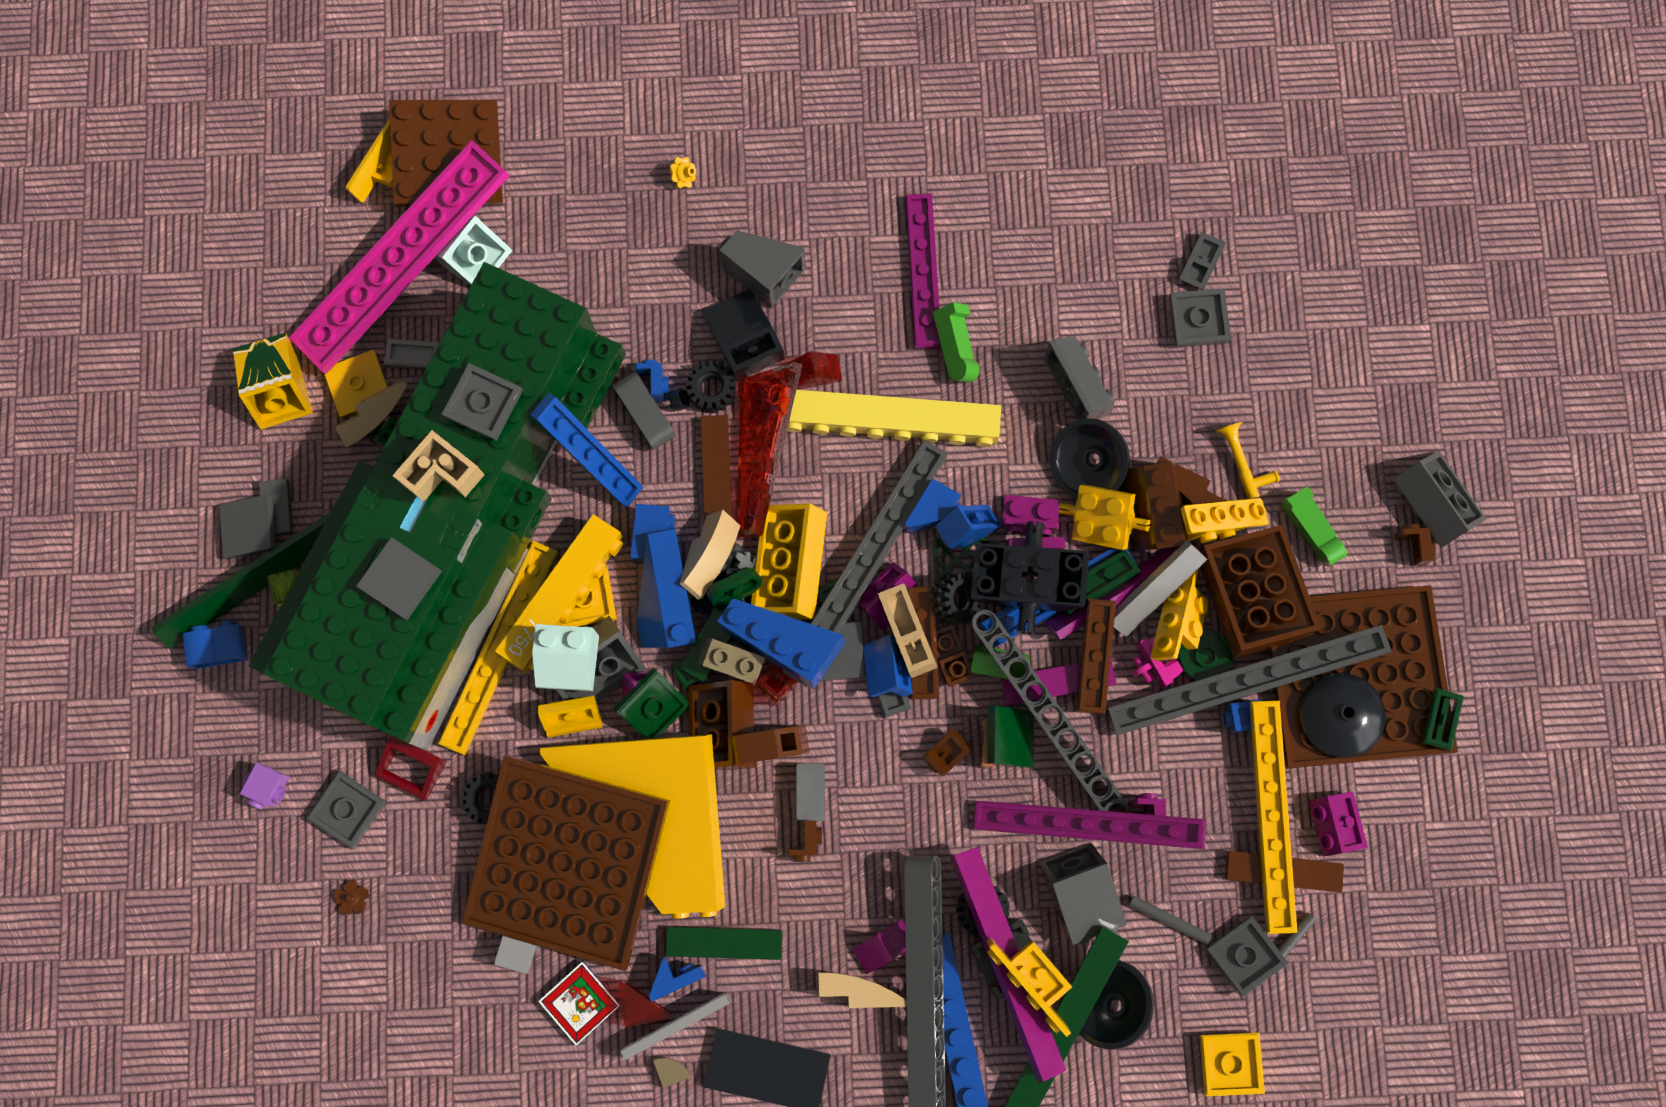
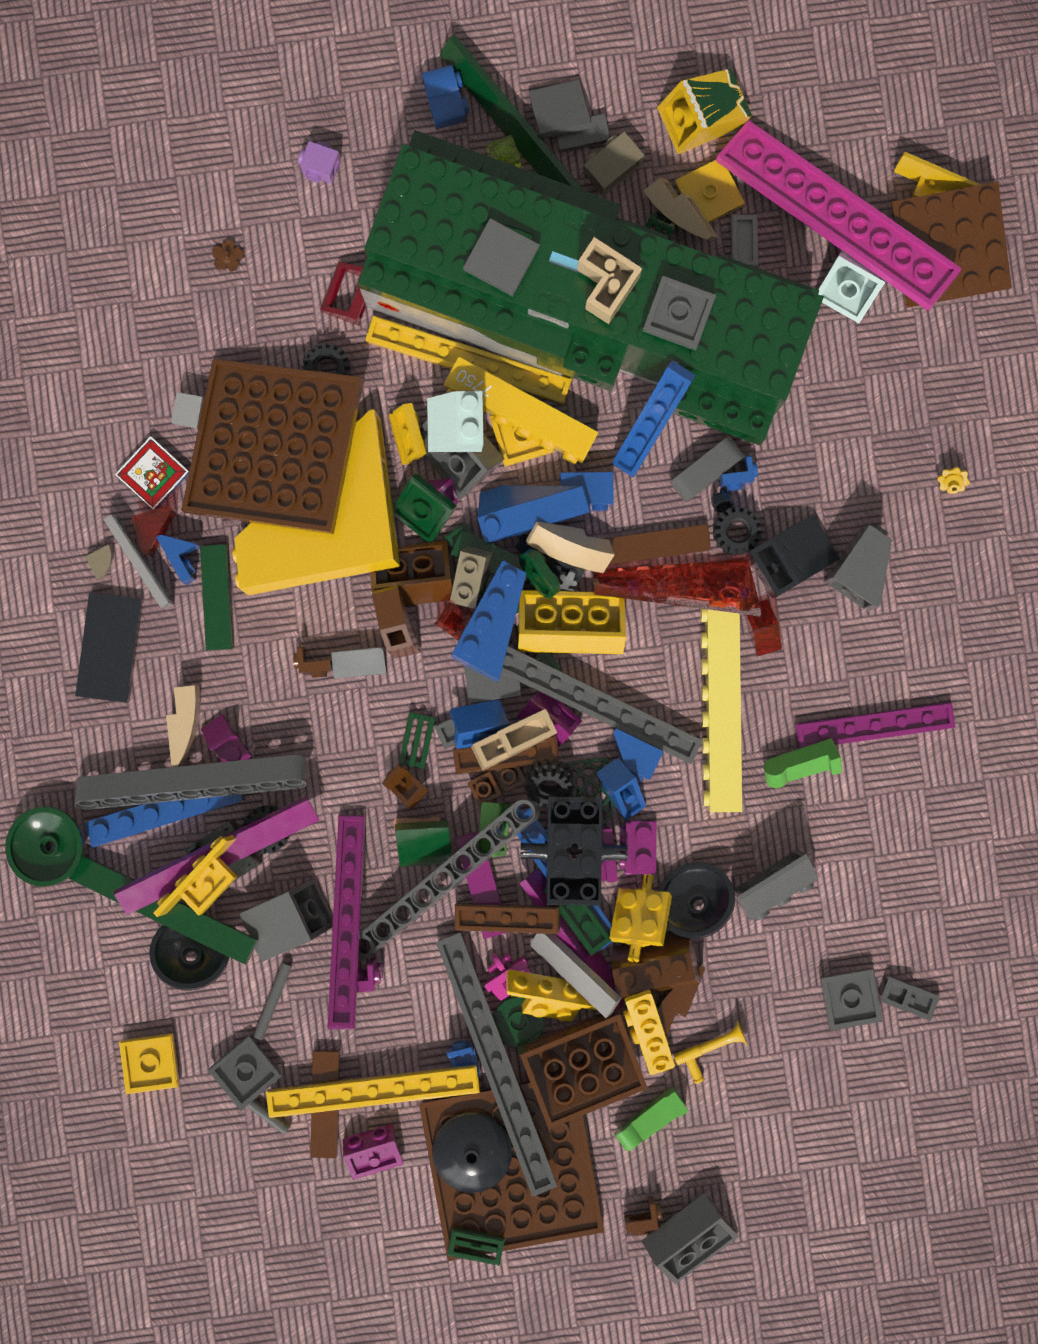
camera: 85 degrees right, 10 degrees up
(312, 476) = (612, 163): none -> dark tan piece
(346, 810) = (306, 240): dark grey tile -> none
(876, 730) = (411, 762): none -> dark green tile

